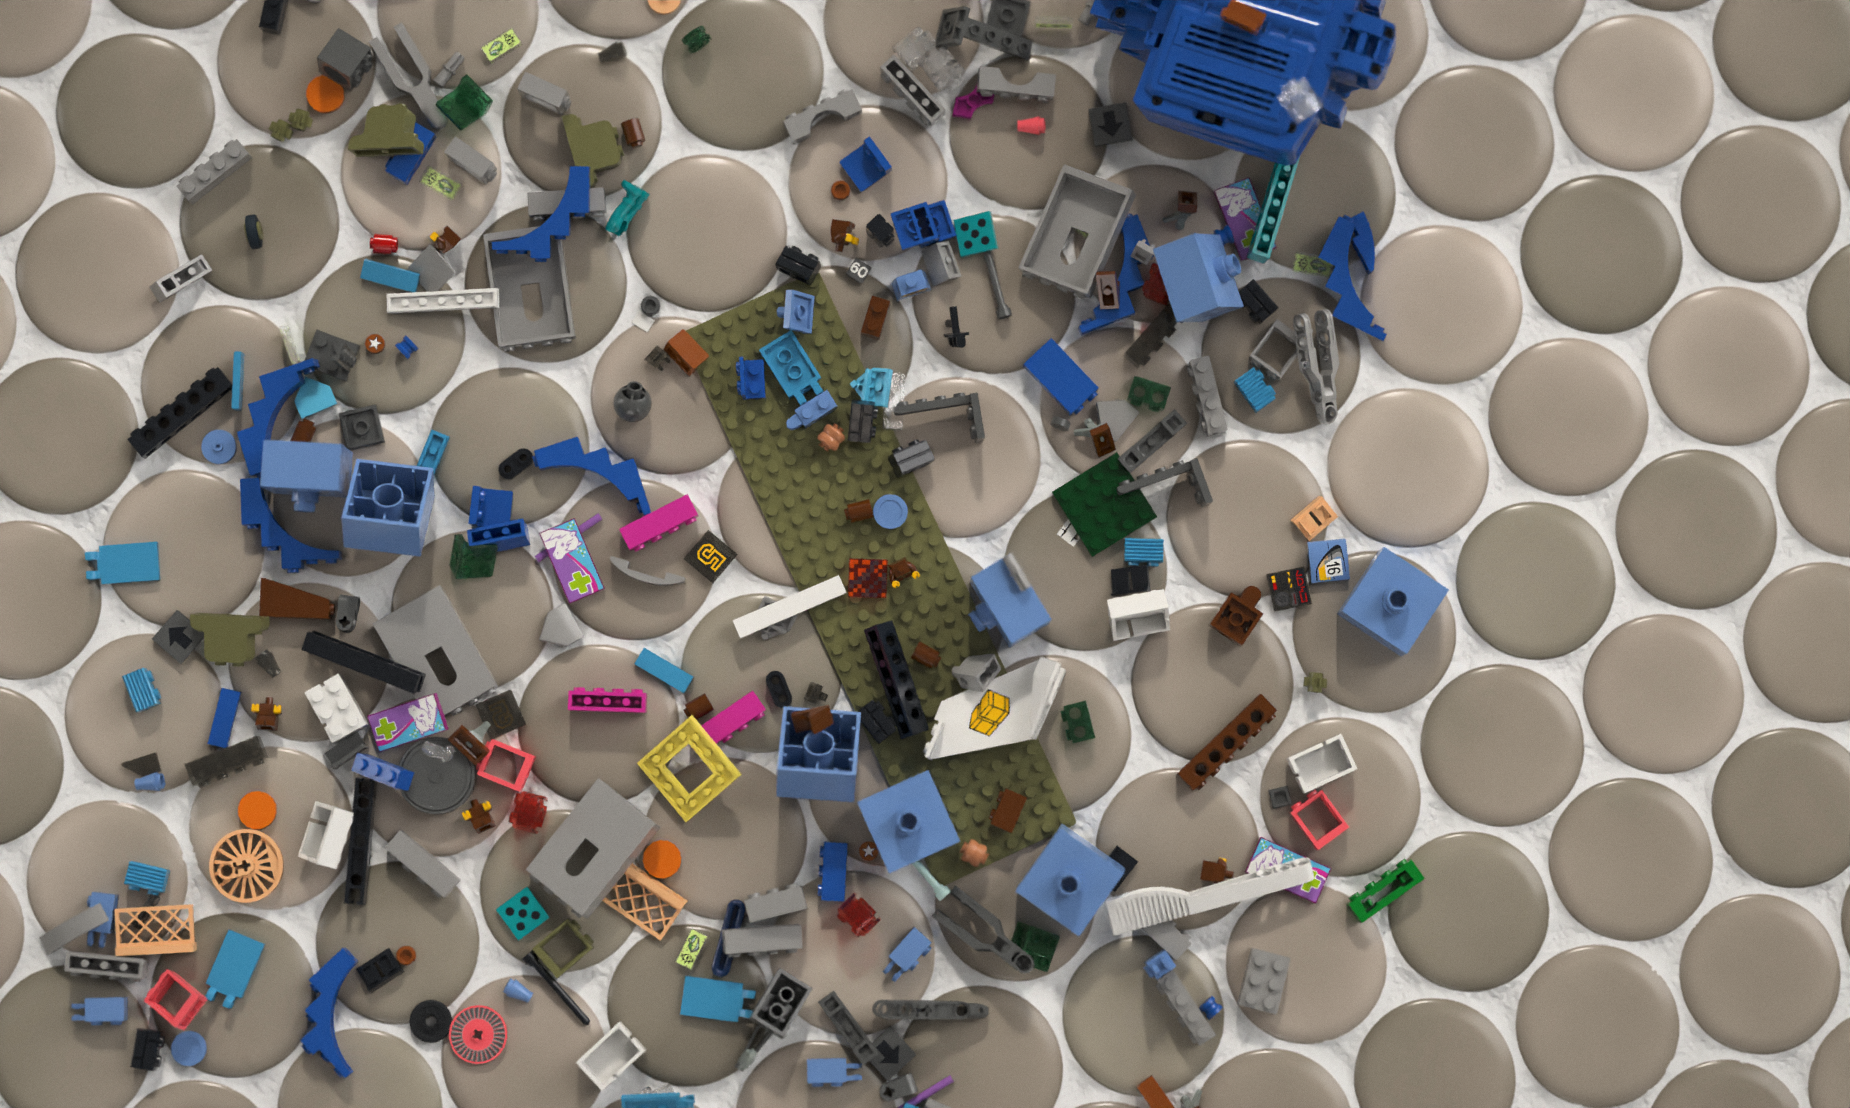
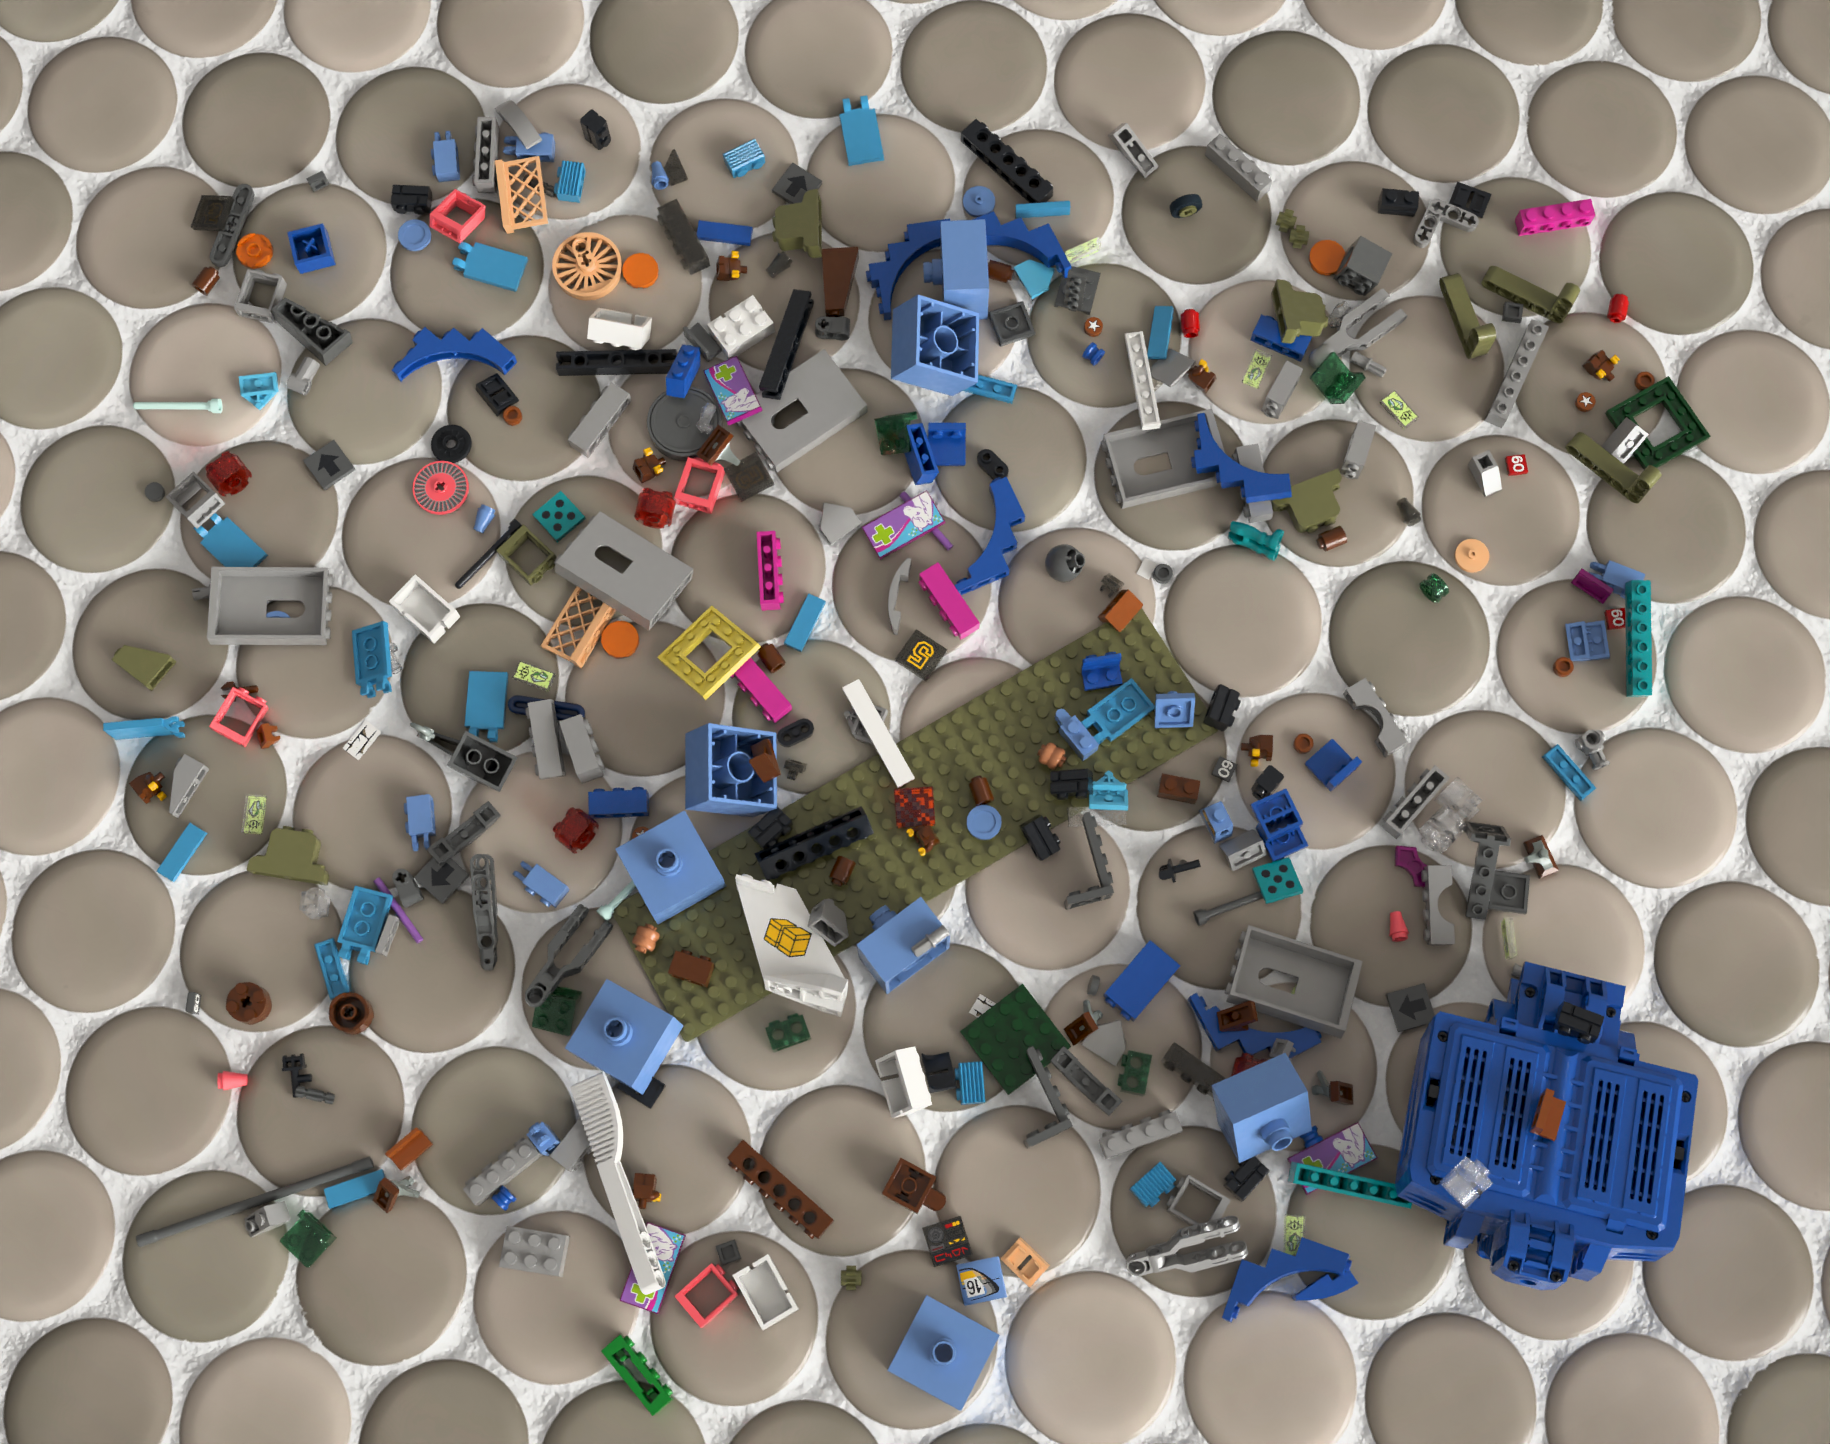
camera: 90 degrees right, 10 degrees down
(92, 845) = (595, 129): none -> black brick
(391, 92) = (1336, 316): none -> clear arm

